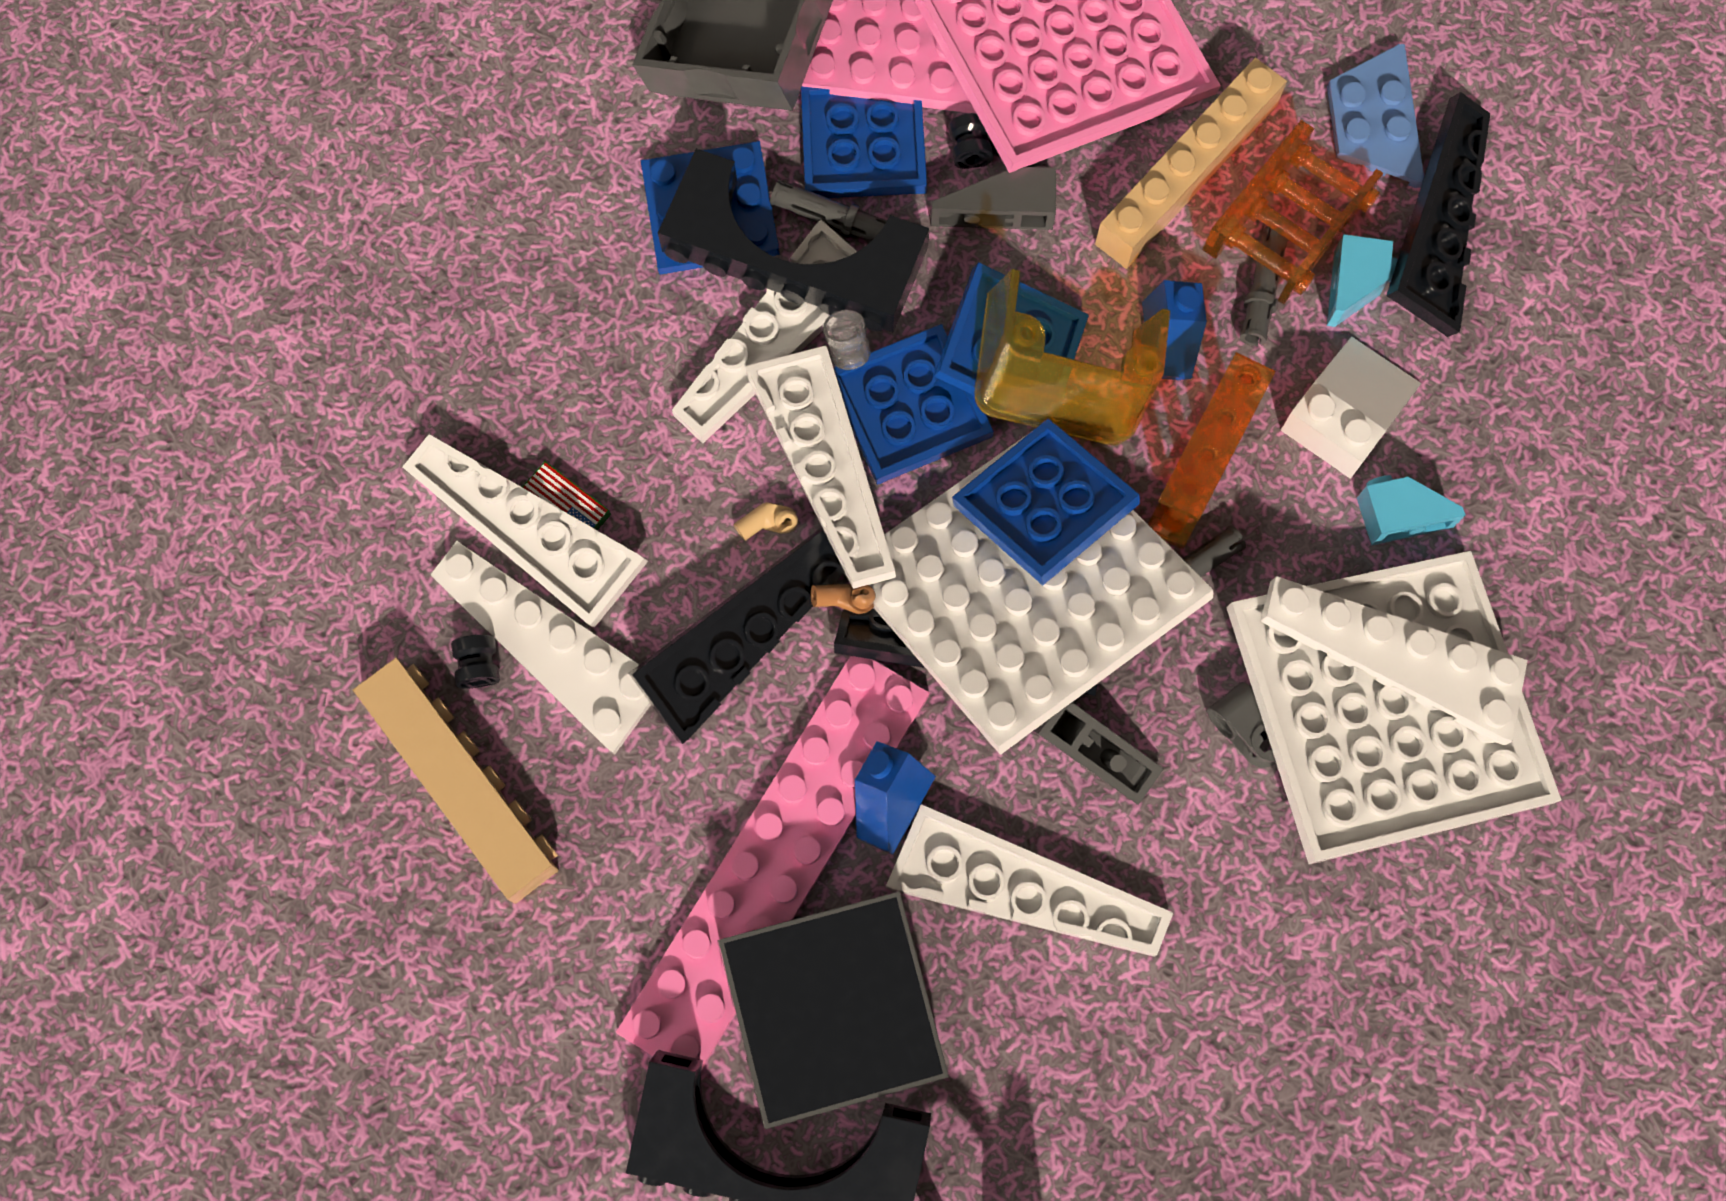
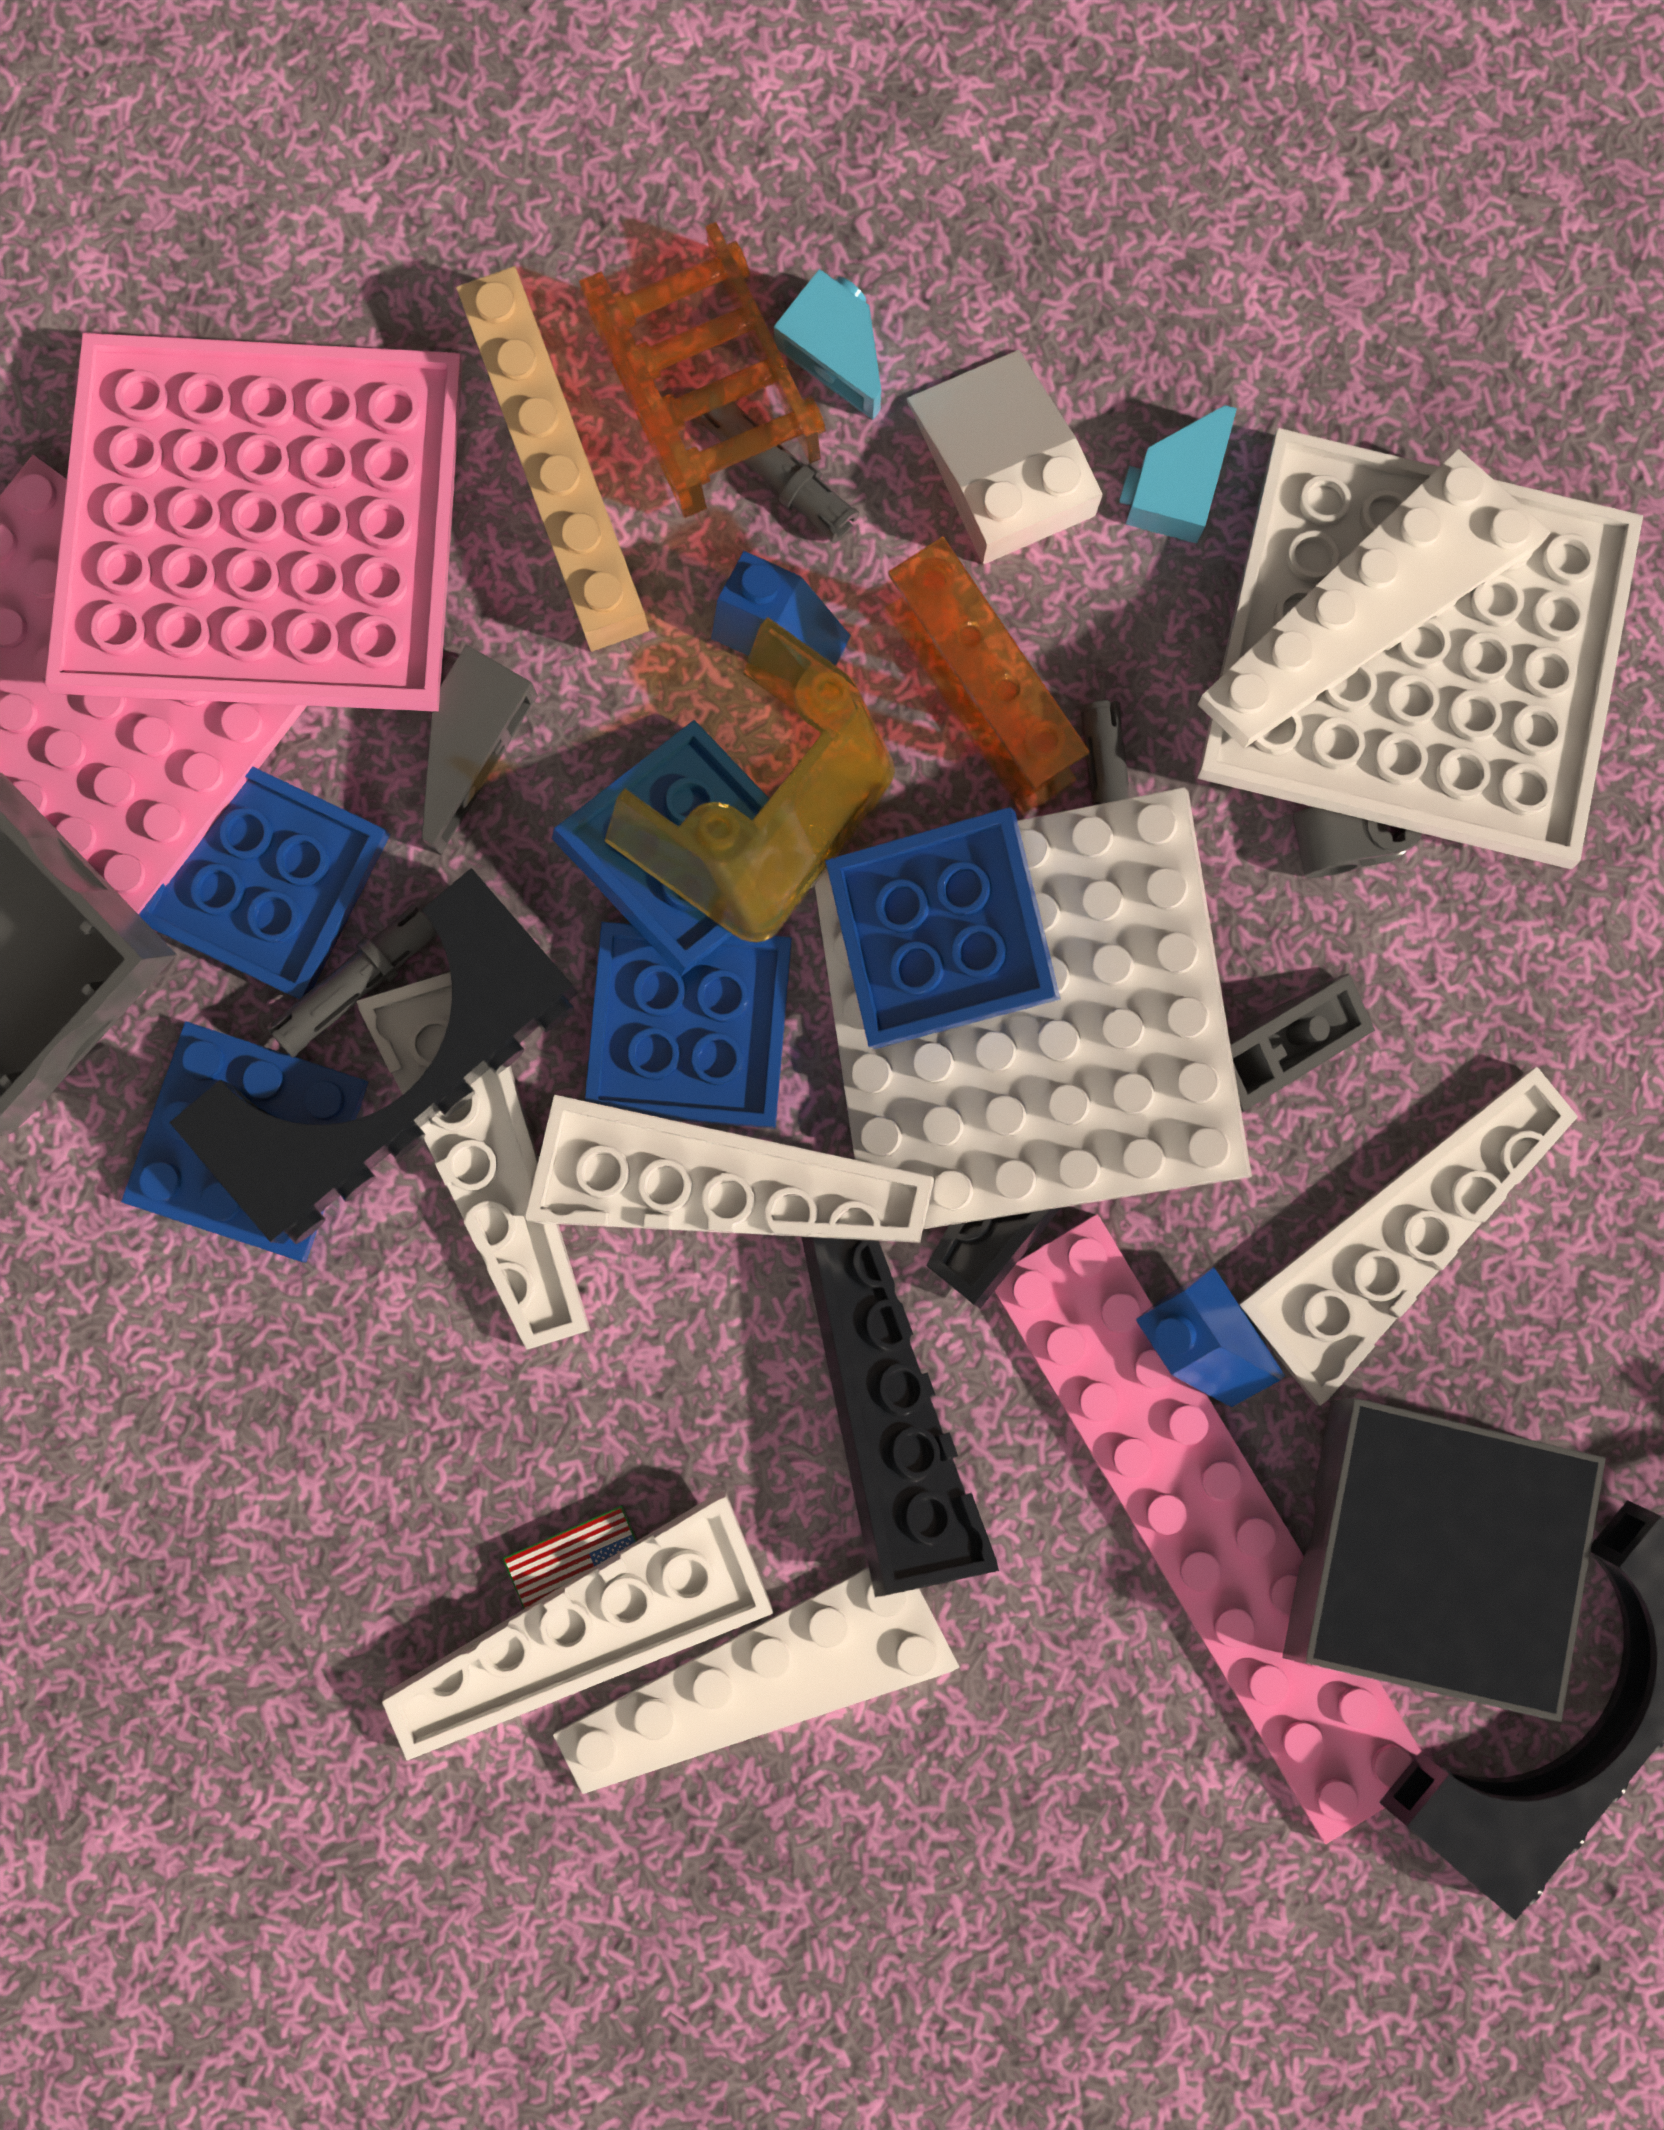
camera: 65 degrees left, 10 degrees up
(456, 780) = (890, 1893): tan brick -> none
(475, 661) = (756, 1795): black wheel -> none
(767, 517) = (744, 1296): tan arm -> none
(847, 339) = (548, 1057): clear wheel -> none
(855, 600) = (914, 1258): medium nougat arm -> none
(970, 141) = (353, 735): black wheel -> none
(1376, 117) = (617, 175): medium blue wing -> none
(1435, 244) = (851, 219): black wing -> none

